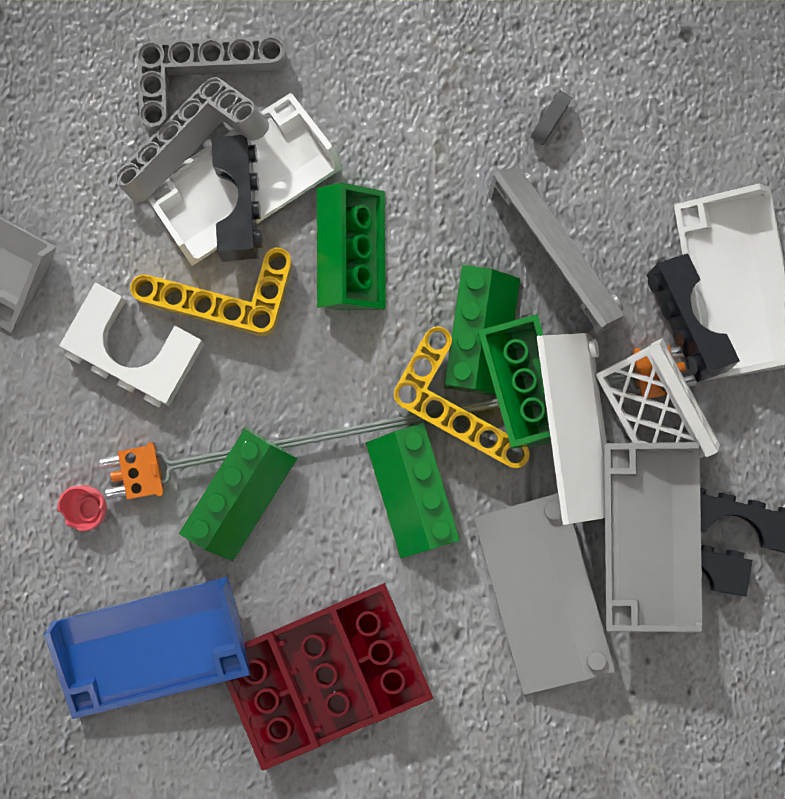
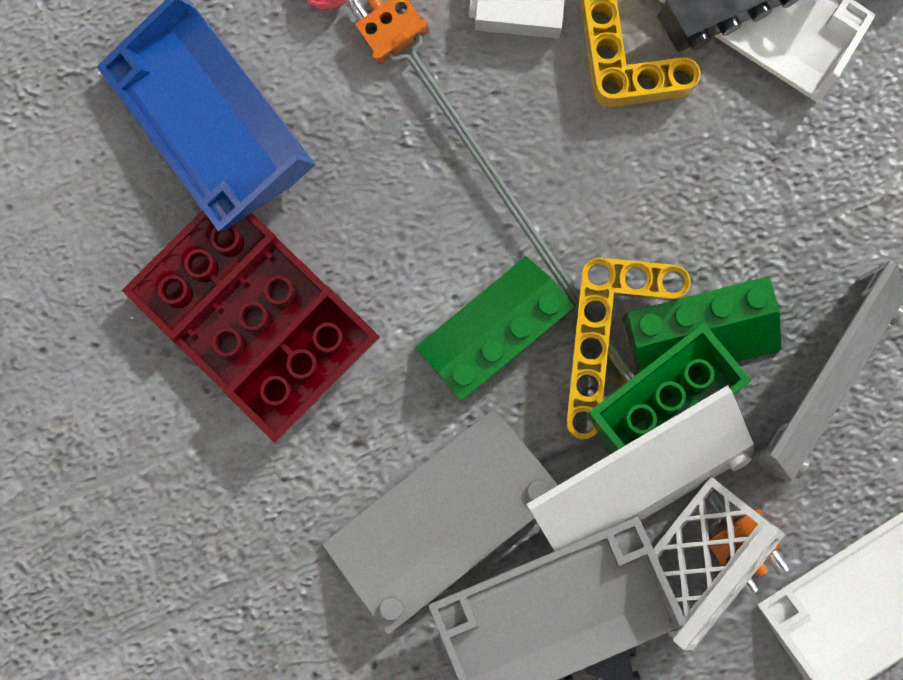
camera: 65 degrees right, 0 degrees up
(238, 495) = (410, 139): green slope -> none
(350, 248) = (733, 149): green slope -> none
(705, 350) = (792, 589): black arch -> none

